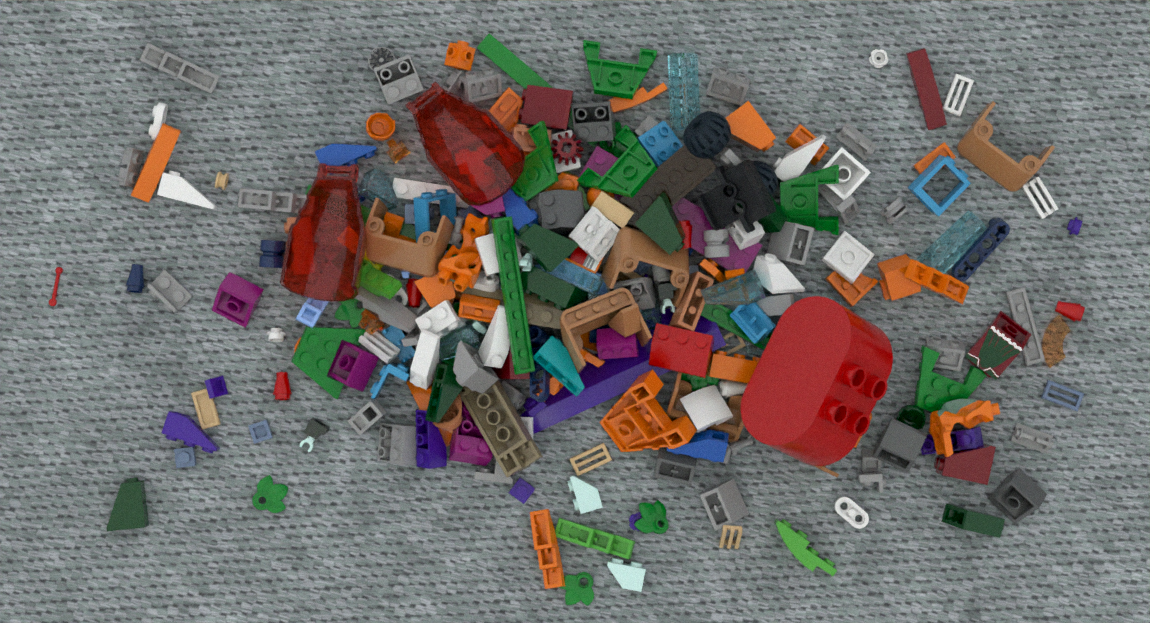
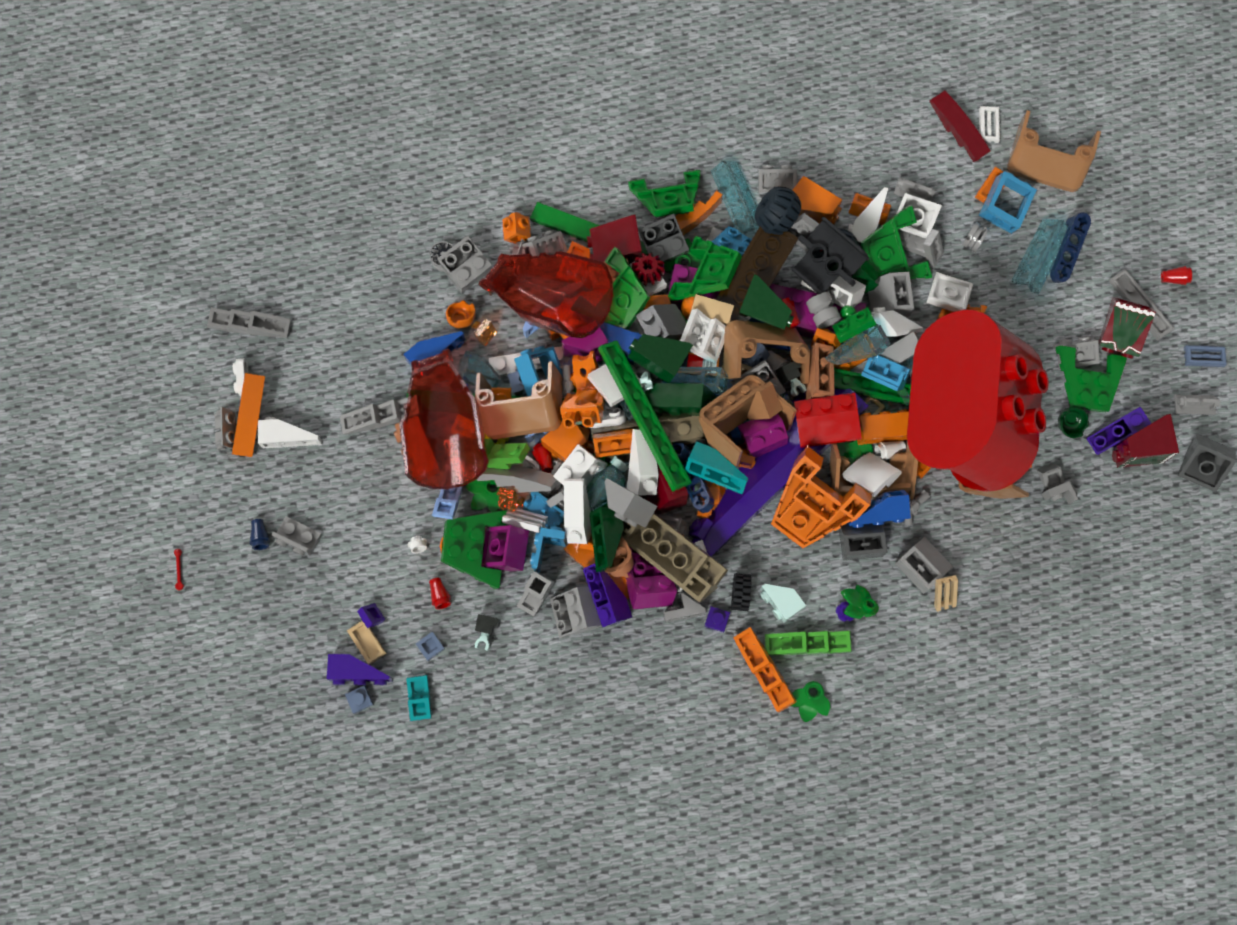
camera: 10 degrees left, 15 degrees down
(129, 507) = (314, 770): dark green slope -> none
(221, 180) = (319, 413): tan bush -> none
(237, 299) = (367, 521): magenta slope -> none
(237, 473) = (419, 697): none -> teal slope
(272, 253) = (390, 466): dark blue wheel -> none
(272, 493) = (462, 708): green plate -> none
(550, 476) = (741, 592): none -> black tyre
(605, 452) = (762, 577): tan tile -> none
(628, 575) = (856, 669): light aqua slope -> none
(739, 267) = (853, 322): none -> green plate
(797, 545) = (1013, 580): bright green slope -> none
(851, 512) = (1053, 530): white plate -> none
(883, 58) = (908, 111): white plate -> none
(893, 282) = (1005, 295): orange plate -> none
(899, 445) = (1074, 447): dark grey slope -> none
(936, 281) = (1043, 285): orange slope -> none
(963, 411) = (1121, 397): orange hips -> none
(973, 520) = (1175, 498): dark green slope -> none
(1048, 211) = (1105, 185): white tile -> none
(1053, 341) = (1173, 309): clear orange tile -> none
(1074, 226) = (1146, 201): dark purple plate -> none

